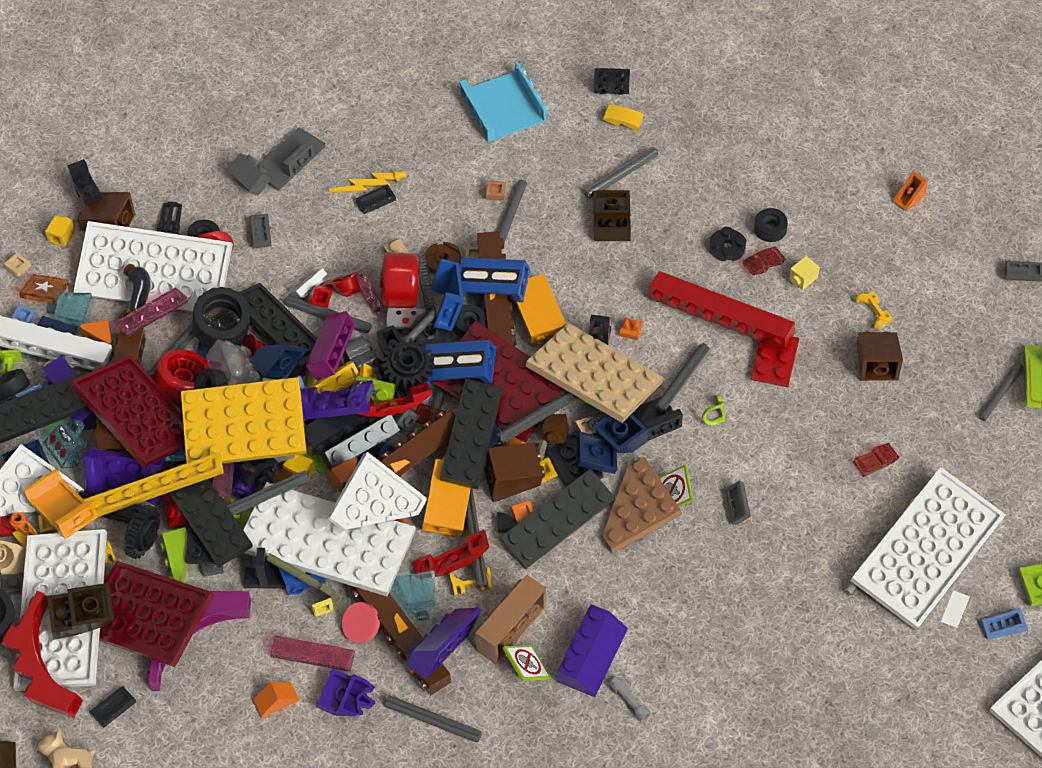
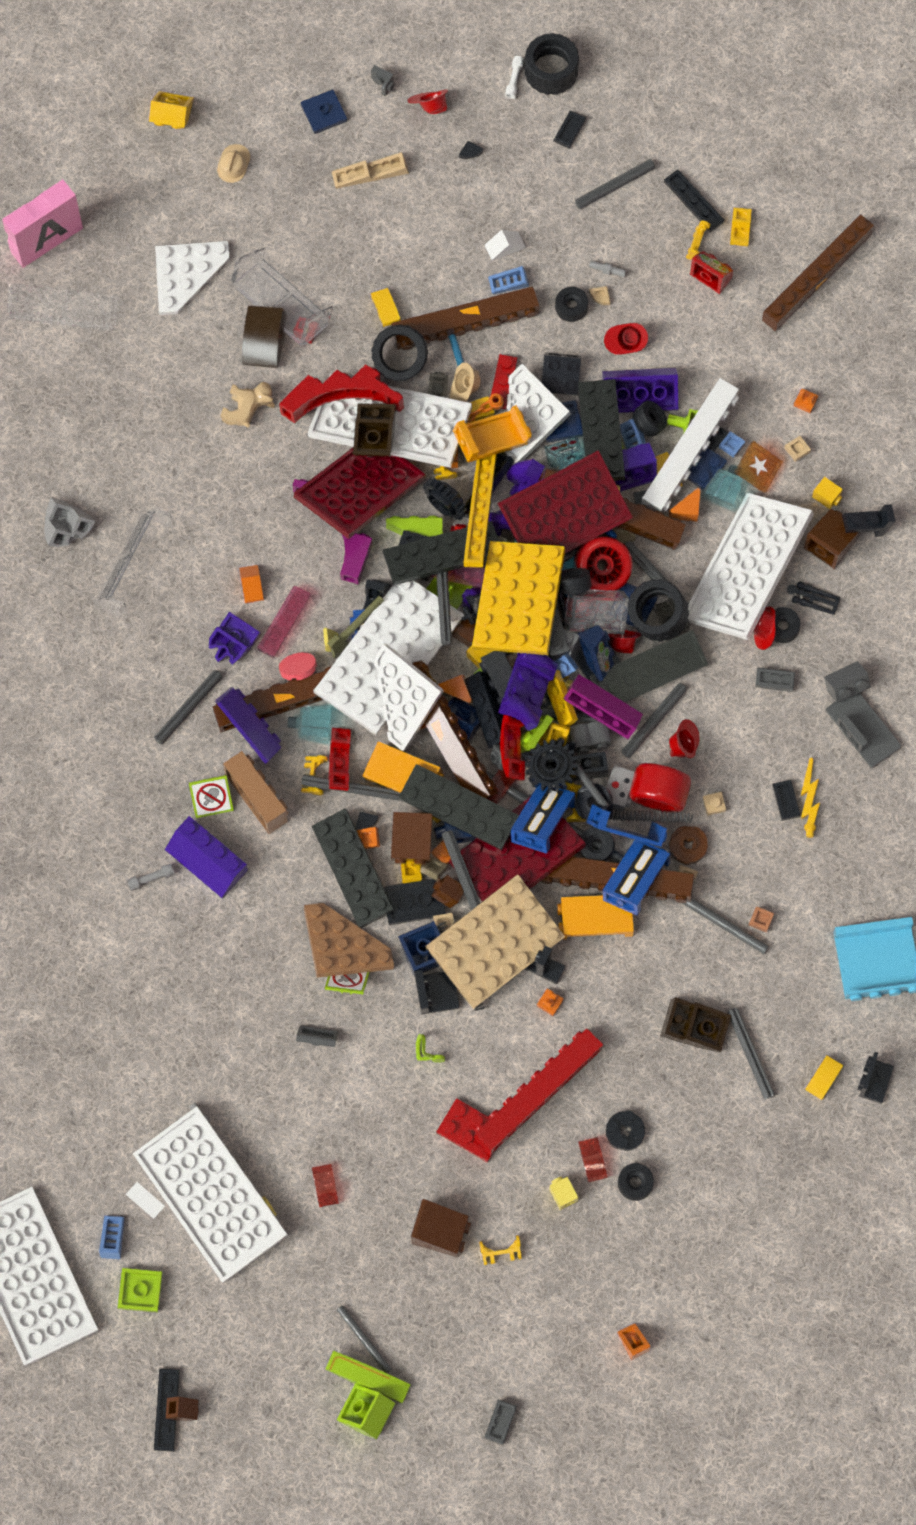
camera: 105 degrees right, 15 degrees up
(113, 707) = (288, 451): black tile -> none
(141, 284) = (726, 549): black piece -> none
(151, 312) = (691, 552): clear pink plate -> none
(313, 280) = (693, 708): white plate -> none
(320, 296) = (670, 714): red slope -> none
(369, 291) = (667, 757): clear pink slope -> none
(596, 453) = (408, 917): dark blue plate -> none
(682, 377) = (473, 1030): dark grey axle -> none

